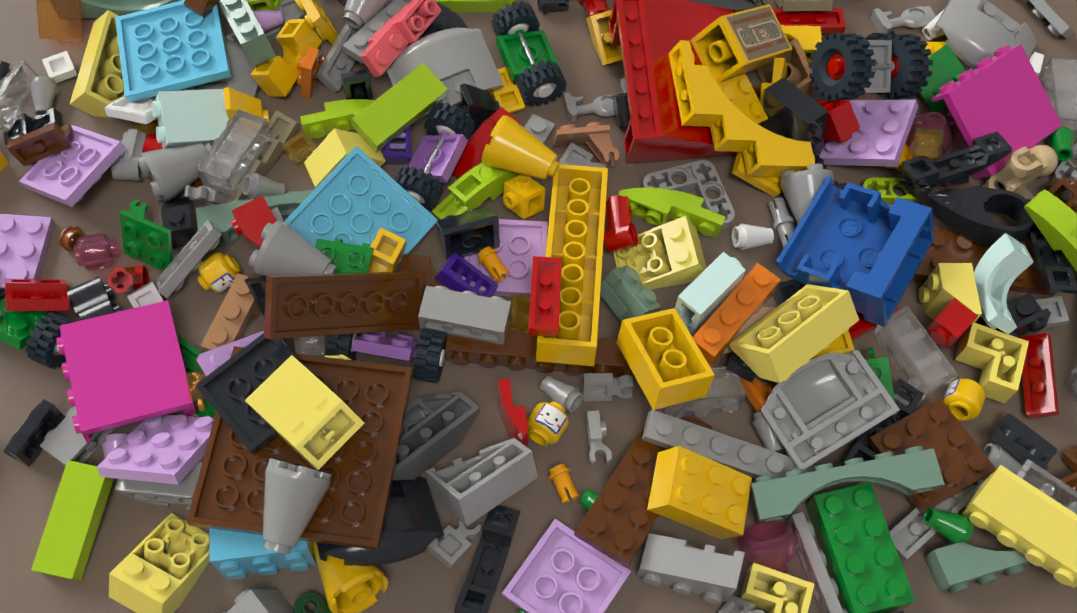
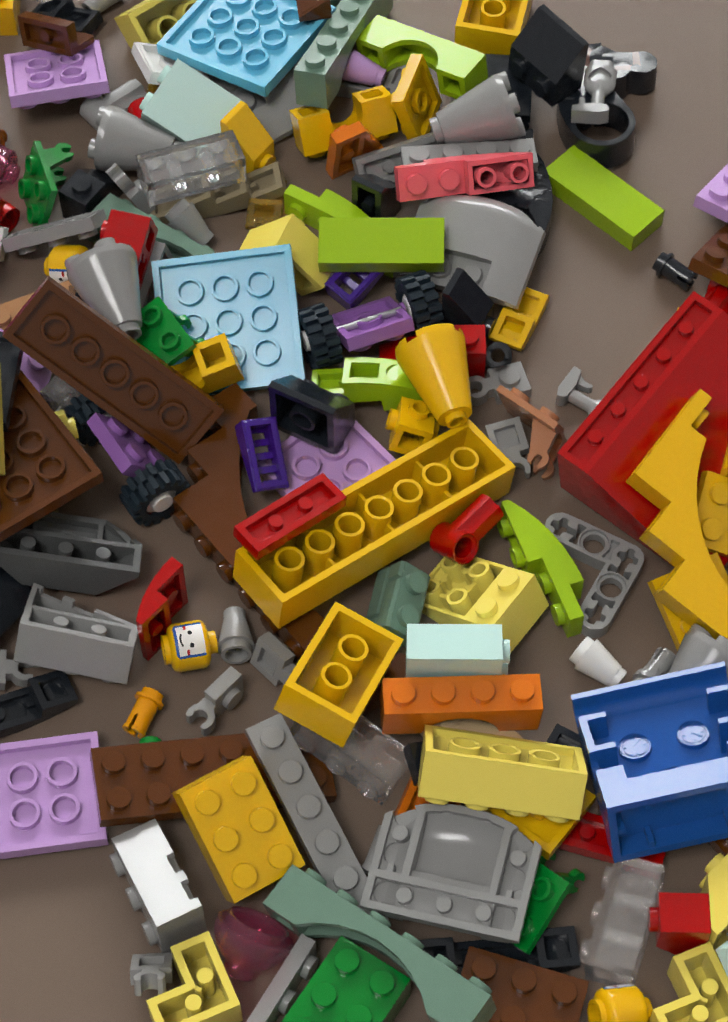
camera: 50 degrees right, 5 degrees down
(465, 314) = (217, 476): light grey brick -> none
(489, 258) = (307, 454): light orange pin -> none
(524, 116) = (498, 345): none -> black pin
(528, 54) = (579, 298): plate -> none

